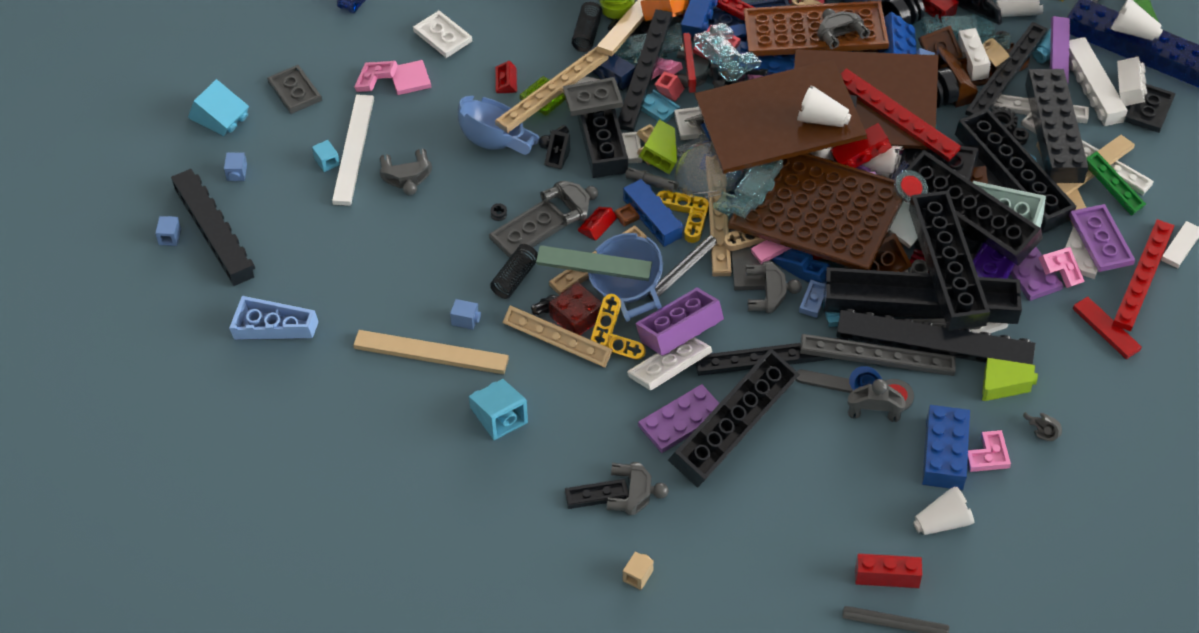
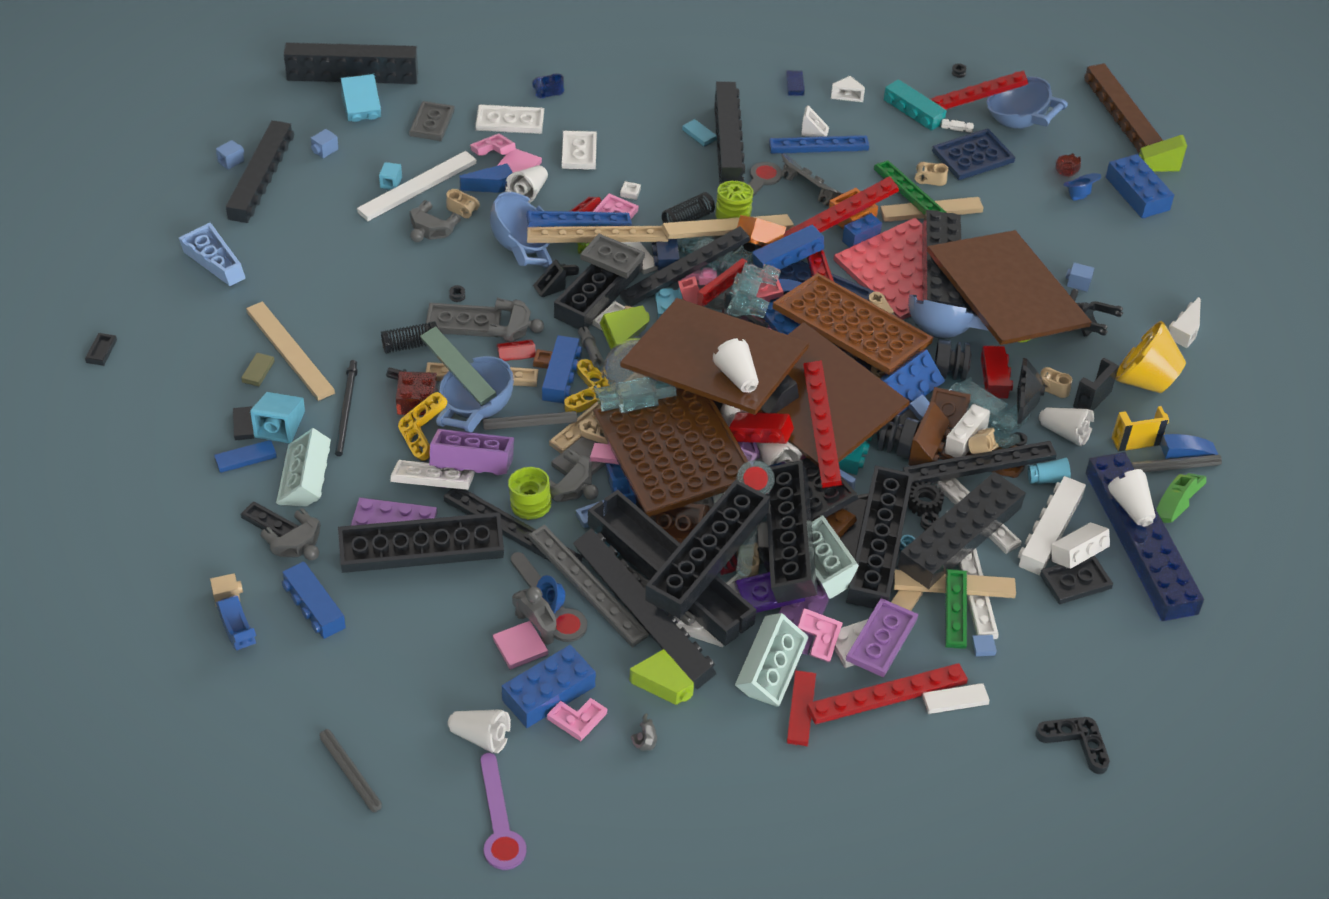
camera: 40 degrees right, 5 degrees down
(172, 84) = (335, 61): none -> black brick
(277, 468) = (101, 349): none -> black tile
(354, 46) = (510, 119): none -> white tile
(408, 104) = (486, 180): none -> blue slope
(408, 139) = (460, 203): none -> tan piece
(427, 386) = (258, 369): none -> olive tile
(444, 88) = (527, 181): none -> white cone
(465, 314) = (340, 341): medium blue brick -> none
(473, 435) = (243, 423): none -> black tile
(502, 332) = (351, 372): none -> black bar
(509, 460) = (245, 456): none -> blue tile
(519, 40) = (630, 190): none -> white tile
(521, 88) = (576, 219): none -> blue tile
(526, 61) = (615, 204): none -> bright pink plate
(557, 336) = (382, 402): tan tile -> none
(571, 434) = (304, 469): none -> light aqua slope
(683, 590) = (235, 622): none -> blue arch
(710, 523) = (313, 600): none -> blue brick
(758, 319) = (529, 493): none -> lime wheel
(838, 24) = (862, 326): dark grey connector -> none
(885, 435) = (520, 645): none -> bright pink tile
(888, 570) = (388, 731): red brick -> none
(1055, 582) = (504, 847): none -> medium lavender piece
(1056, 309) = (772, 660): none -> light aqua slope
(1060, 44) = (1049, 477): medium lavender tile -> none
(1153, 195) = (984, 645): none -> medium blue tile

